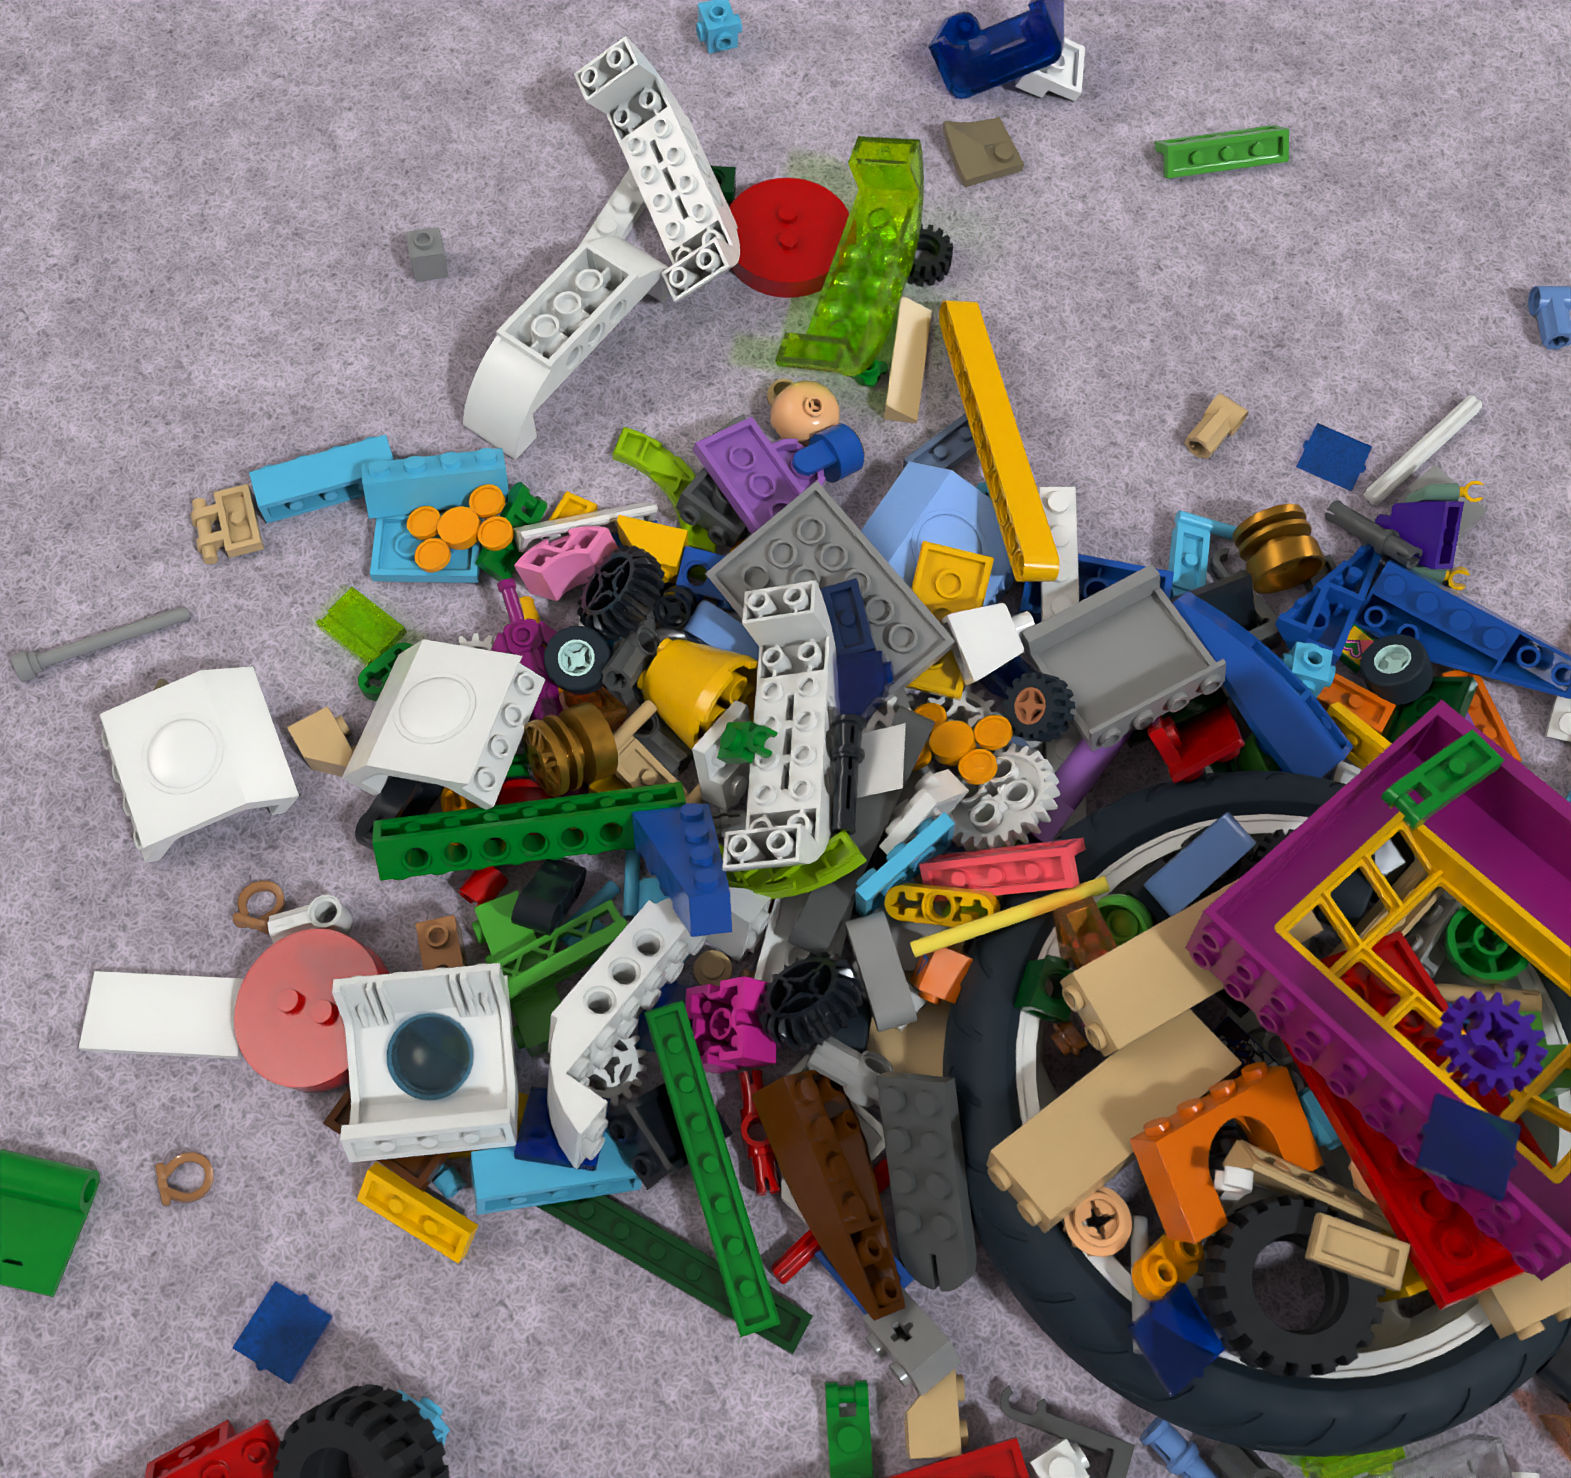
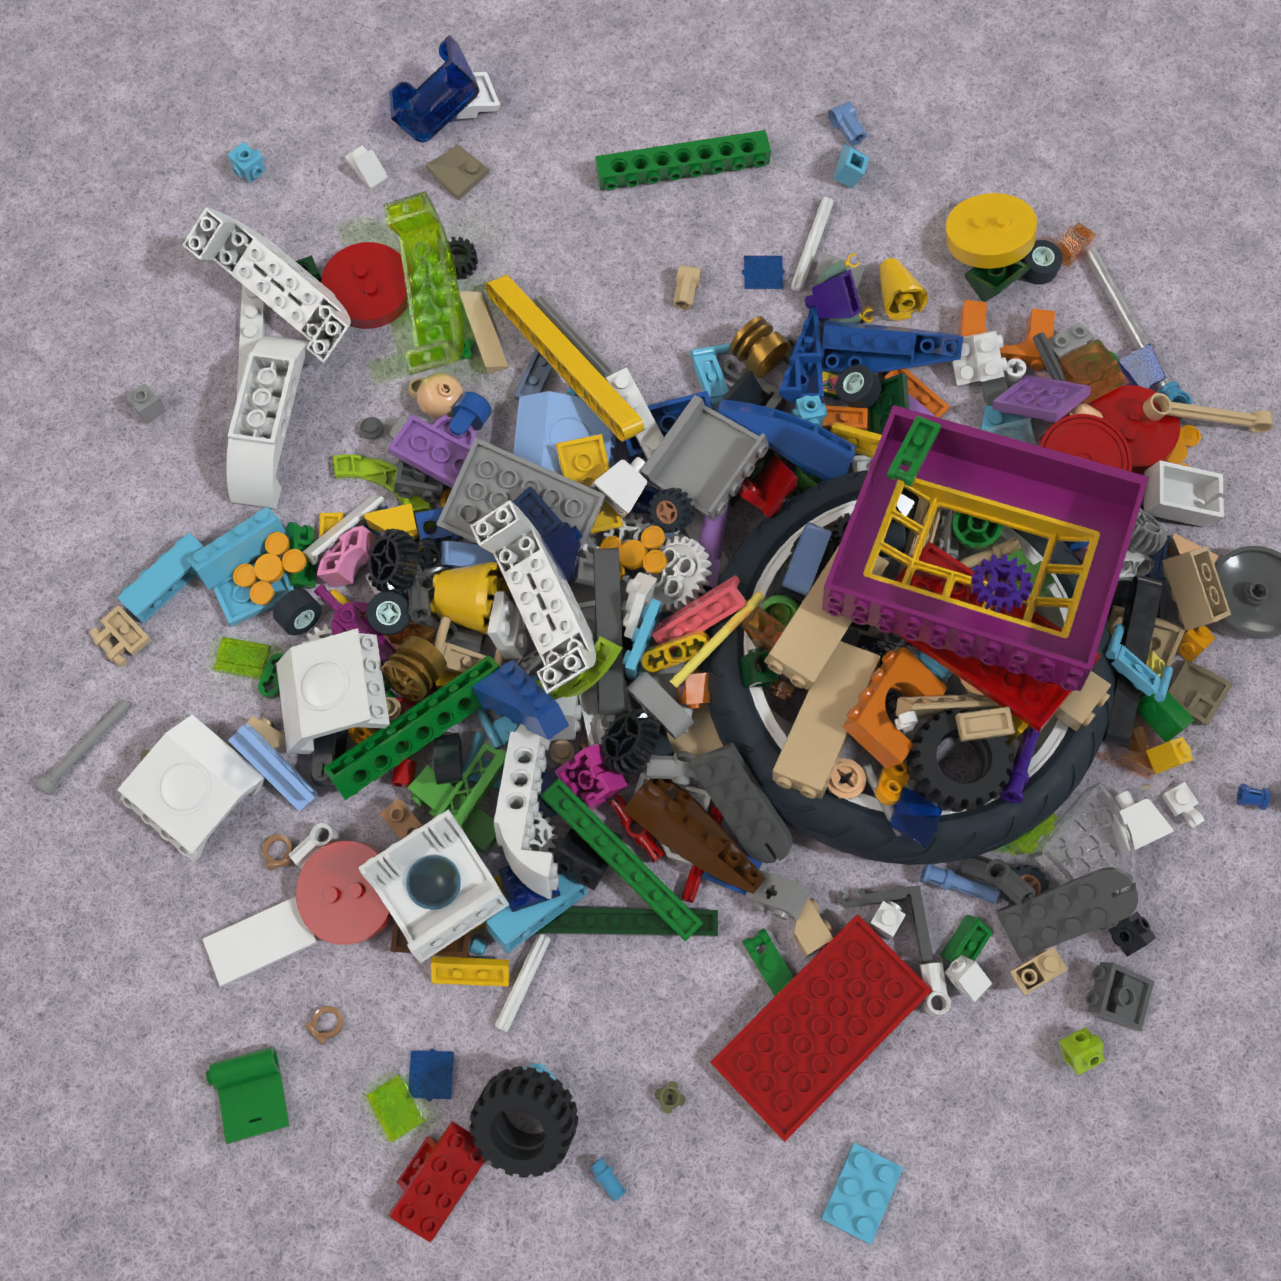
camera: 25 degrees left, 5 degrees up
(206, 1354) = (395, 1108): none -> clear neon green plate
(315, 787) = (273, 766): none -> light blue fence
(463, 601) = (297, 612): none -> black wheel
(480, 1269) = (522, 982): none -> white axle
(513, 789) = (393, 707): none -> tan plate
(694, 415) = (371, 428): none -> dark grey plate
(744, 740) = (515, 614): green plate -> none
(847, 756) = (579, 593): black pin -> none
(867, 96) = (367, 166): none -> white slope
(883, 761) = (594, 590): white sticker -> none
(1025, 420) = (574, 336): none -> light grey axle
(1224, 150) = (605, 103): bright green fence -> none
(1295, 264) = (699, 156): none -> green brick
(1375, 1360) = (1019, 776): none -> dark purple pin
(1383, 540) = (816, 313): dark grey pin -> none
(1468, 1147) = (1014, 642): clear blue piece -> none
(1523, 568) = (900, 290): none -> yellow cone
(1529, 371) = (850, 166): none -> medium azure slope

